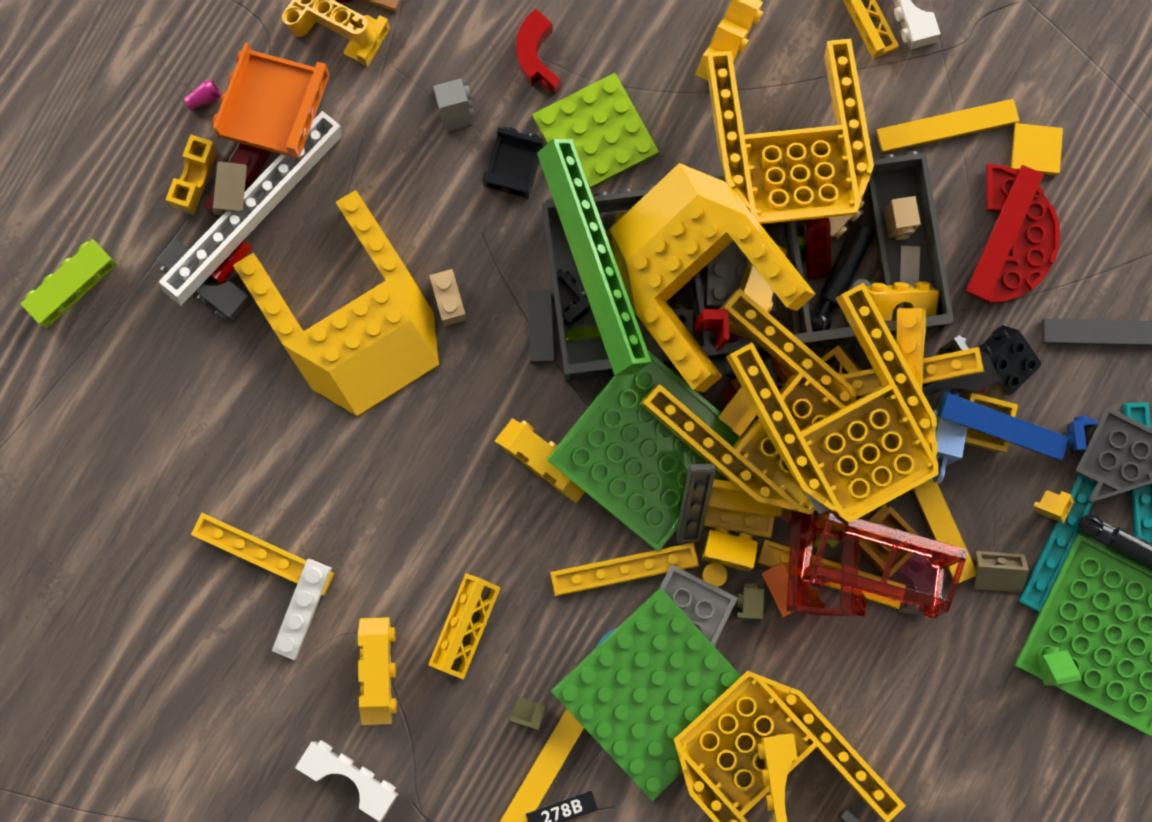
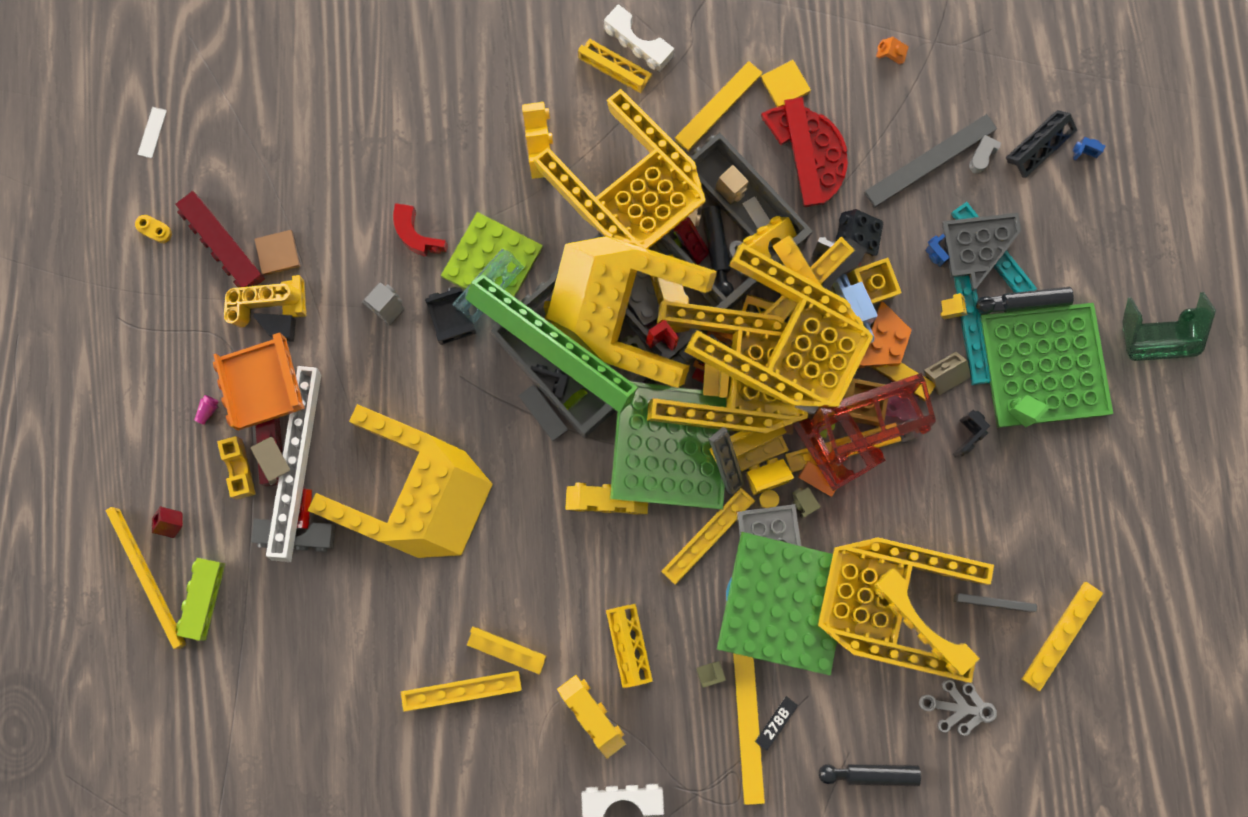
camera: 35 degrees left, 0 degrees up
(29, 224) = (145, 577): none -> yellow tile
(87, 184) = (167, 522): none -> dark red panel
(301, 609) = (513, 709): white plate -> none
(335, 57) = (277, 324): none -> black slope
(336, 544) = (506, 650): none -> yellow fence
(448, 297) = (468, 434): tan brick -> none
(584, 144) = (491, 271): none -> clear light blue fence
(960, 492) = (889, 339): none -> orange wing
(991, 646) = (976, 424): none -> black bracket
(1002, 426) = (888, 278): blue tile -> none

